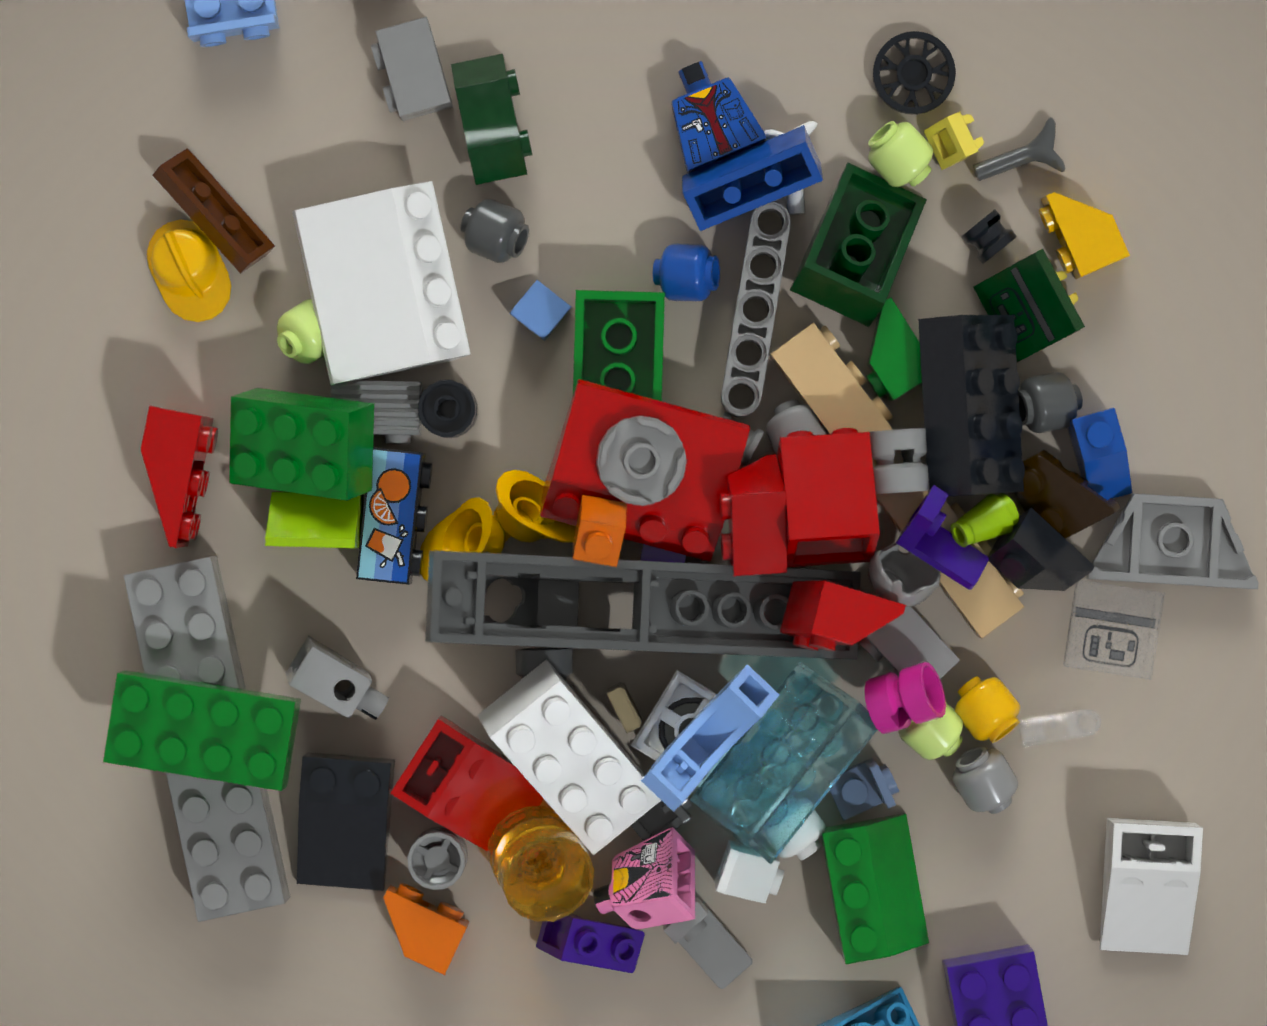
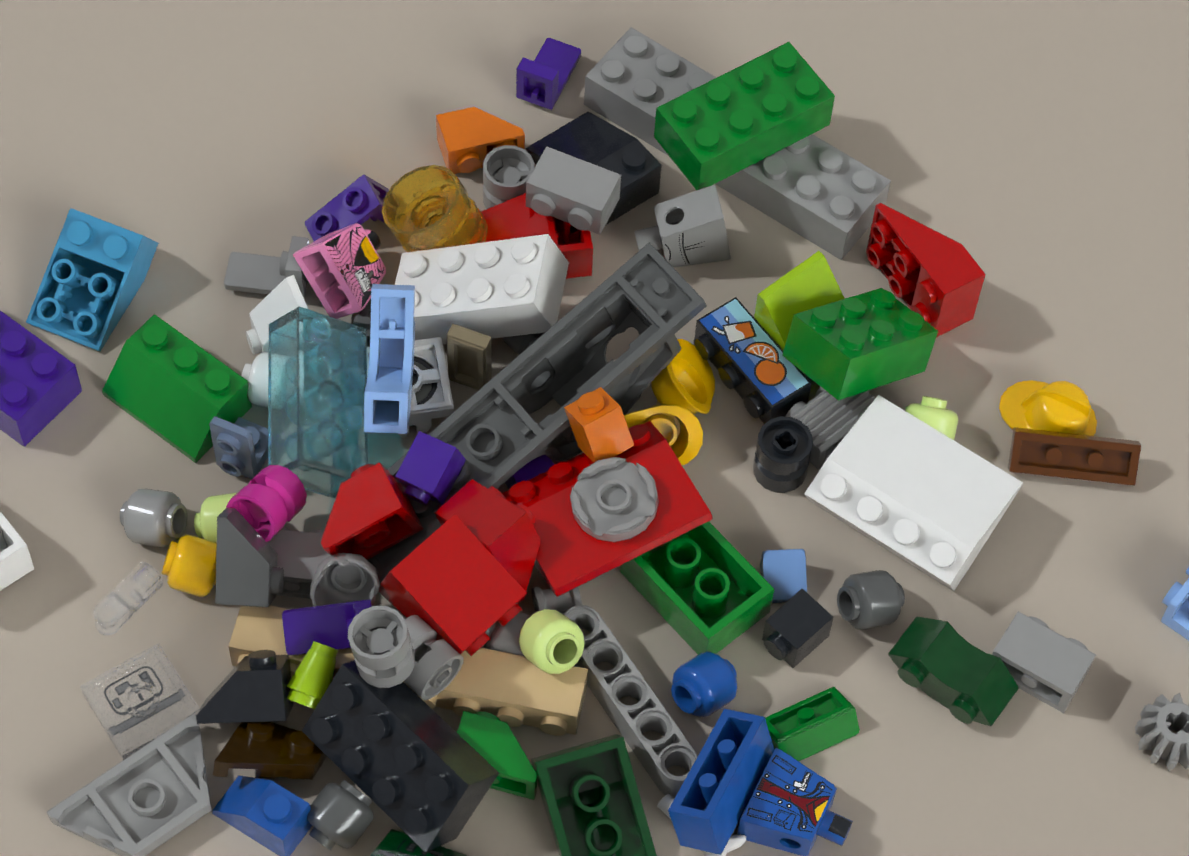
camera: 135 degrees right, 30 degrees down
(296, 950) = (547, 75): none -> dark purple bracket
(415, 780) = (573, 190): none -> light grey brick
(575, 256) = (796, 628): none -> black brick
(632, 178) = (813, 724): none -> green slope
(756, 615) = (430, 469): none -> dark purple brick
(786, 391) = (551, 641): none -> yellowish green head
(941, 472) = (381, 646): none -> light grey wheel
(964, 657) = (244, 564): none -> dark grey slope

